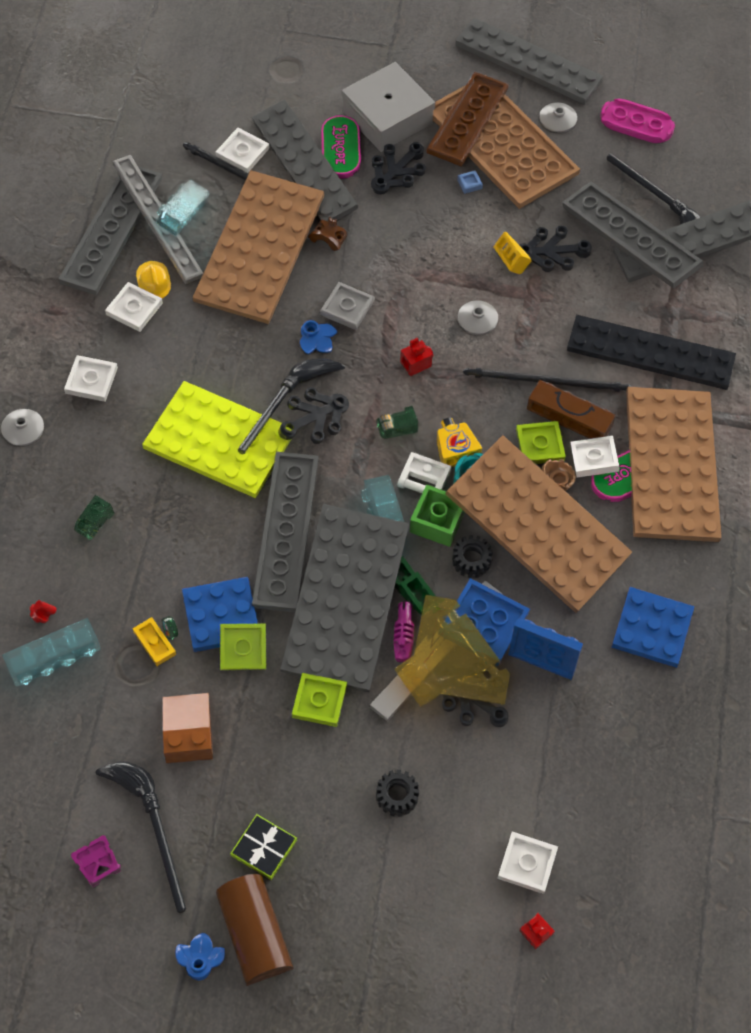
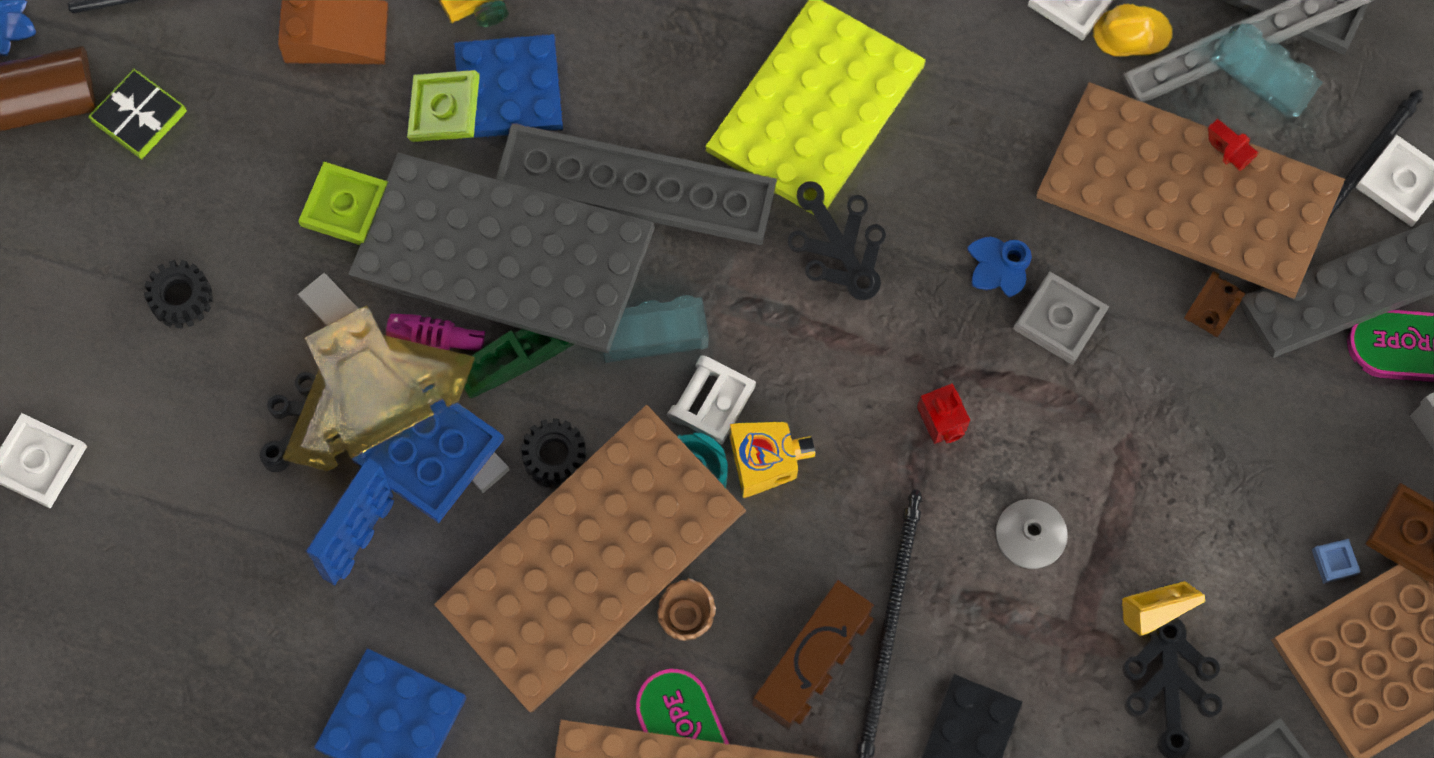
camera: 95 degrees right, 10 degrees up
(238, 217) = (1233, 146): none -> red piece
(299, 373) = (927, 230): black piece -> none
(381, 183) = (1363, 432): black plant -> none
(398, 423) = (816, 370): clear green leg -> none
(436, 516) = (621, 393): bright green brick -> none
(541, 441) = (757, 595): lime plate -> none
(594, 456) = (715, 677): white plate -> none

